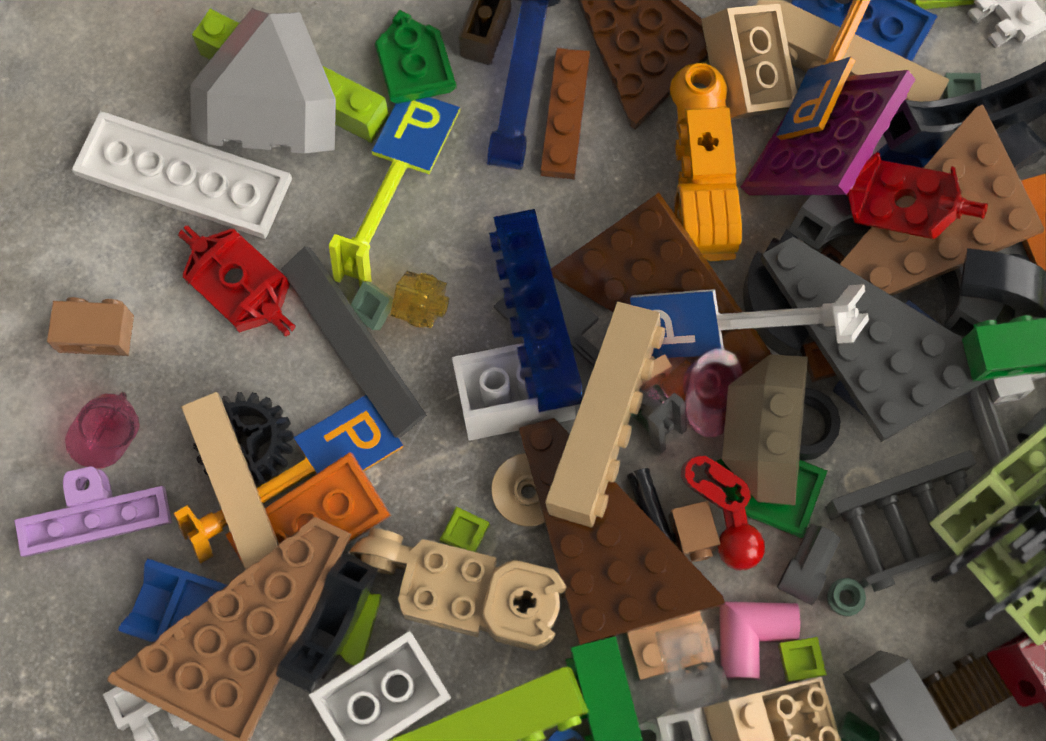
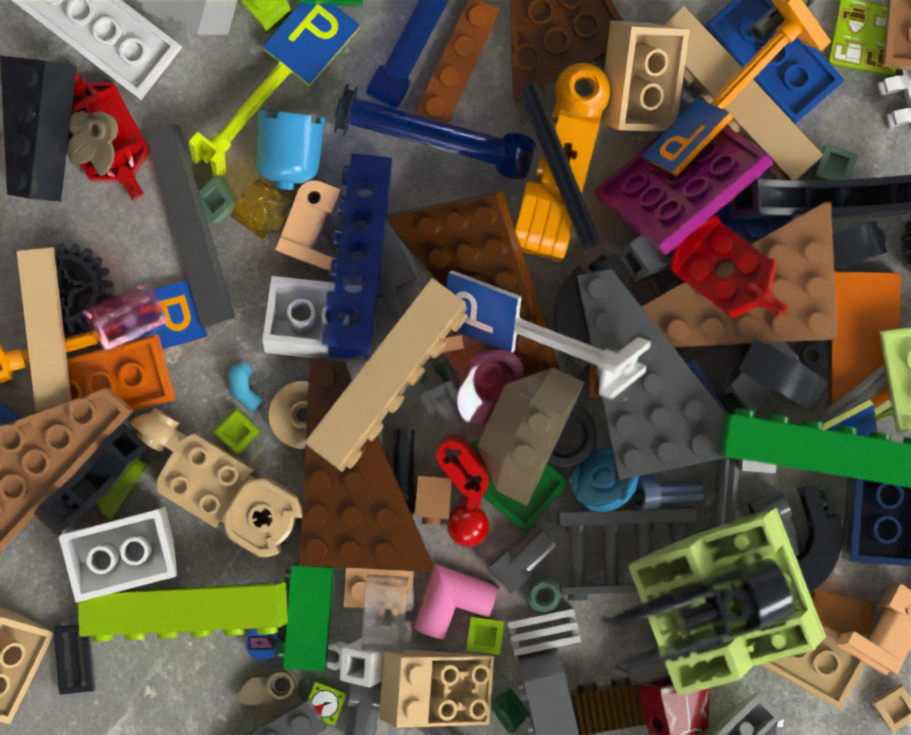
camera: 15 degrees right, 15 degrees up
(167, 286) = (36, 125): none -> black wedge
(228, 286) = (92, 140): none -> dark tan plate
(313, 442) = (125, 316): none -> clear pink brick
(428, 229) = (288, 148): none -> dark azure cylinder
(452, 482) = (240, 388): none -> medium azure arm
(469, 299) = (307, 222): none -> light nougat piece
(647, 173) = (510, 154): none -> clear blue piece
(707, 154) = (559, 166): none -> black axle
(861, 458) = (597, 483): none -> dark azure tile
(888, 620) = (515, 638): none -> white tile
(922, 449) = (651, 494): none -> sand blue piece

